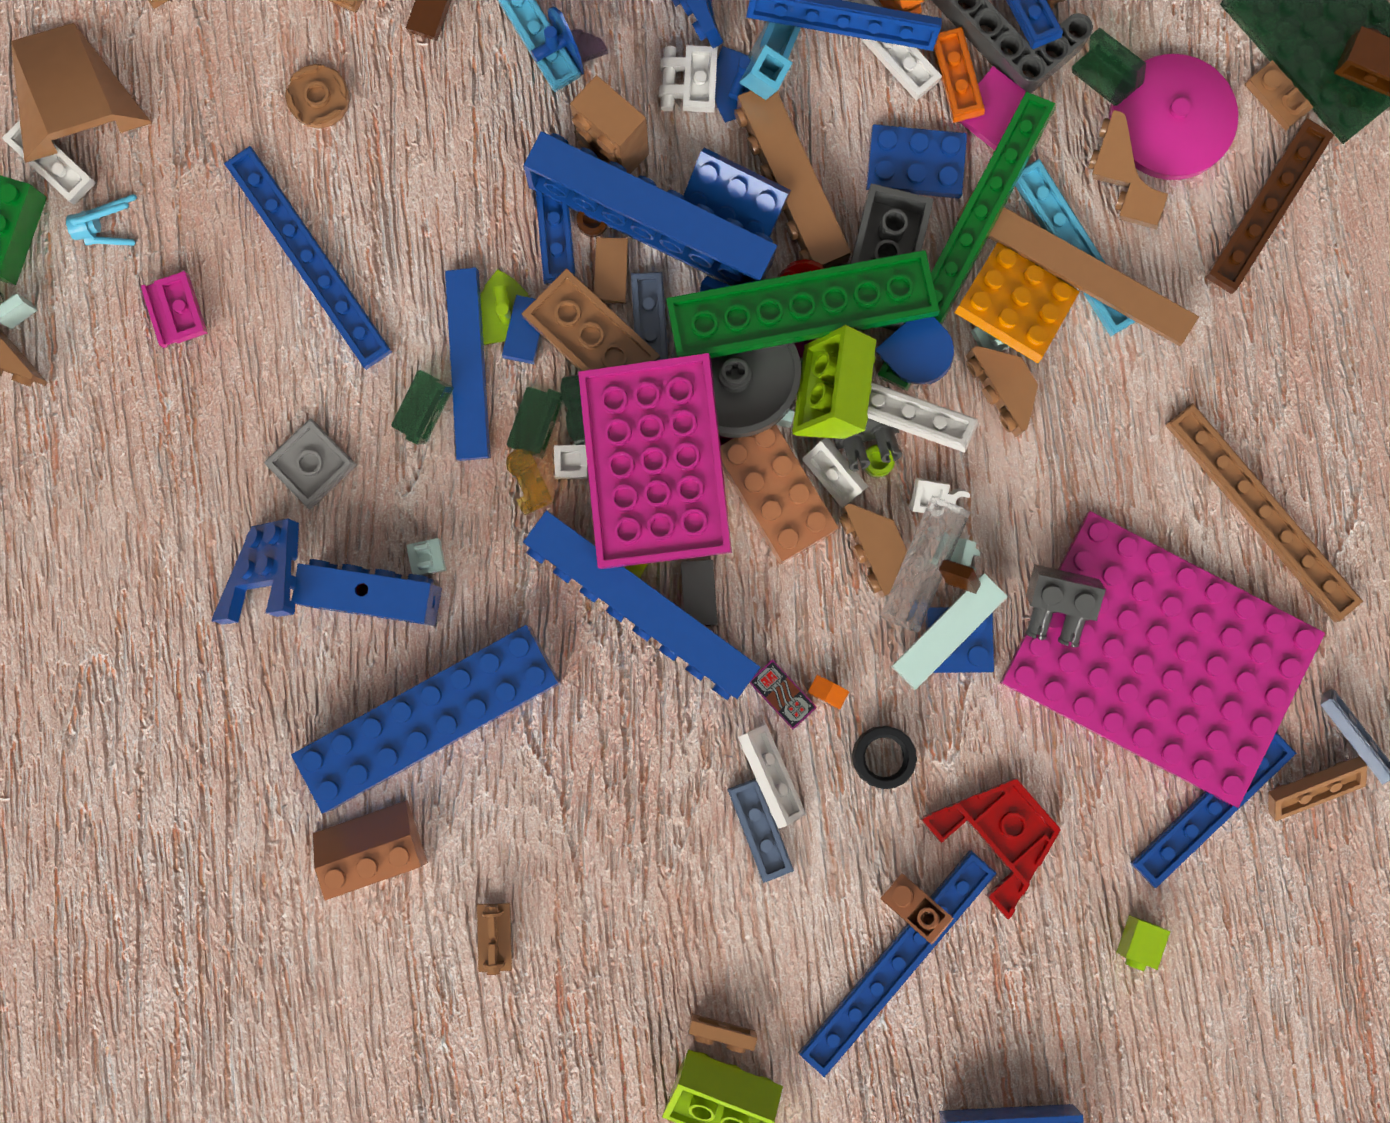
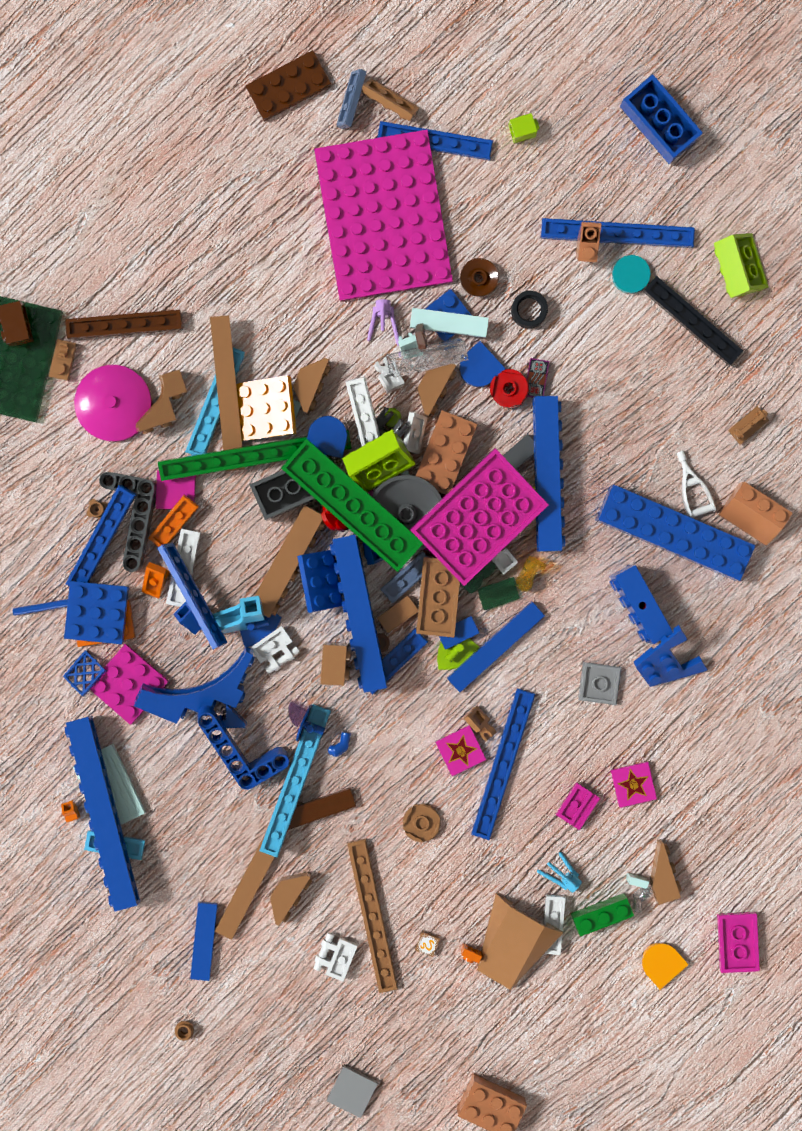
camera: 125 degrees left, 5 degrees up
(98, 28) = (470, 954): none -> orange plate
(143, 405) = (633, 784): none -> dark pink tile
(369, 215) = (460, 750): none -> dark pink tile
(387, 264) = (478, 722): none -> medium nougat plate
(422, 407) = (533, 651): clear green panel -> none
(426, 557) = (601, 594): light aqua tile -> none
(479, 795) = (690, 482): none -> white piece
(496, 69) = (341, 747): none -> blue arm
(696, 972) = (693, 321): none -> black plate
(709, 1030) = (713, 294): medium nougat plate -> none
(760, 830) = (606, 341): sand blue tile -> none
(772, 776) = (578, 354): white plate -> none
(790, 663) = (518, 382): none -> red plate
(826, 936) = (631, 274): none -> teal tile
(828, 692) = (519, 357): orange piece -> none
(856, 630) = (480, 366): none -> blue tile
(917, 160) = (231, 509): blue plate -> none
(996, 727) = (483, 268): none -> reddish brown dish
(1011, 826) = (516, 226): red wing -> none
(1032, 553) = (382, 310): none -> lavender plant
(1065, 593) = (392, 282): dark grey brick -> none
(1110, 68) = (115, 450): clear green panel -> none
(1264, 513) = (276, 218): medium nougat tile -> none

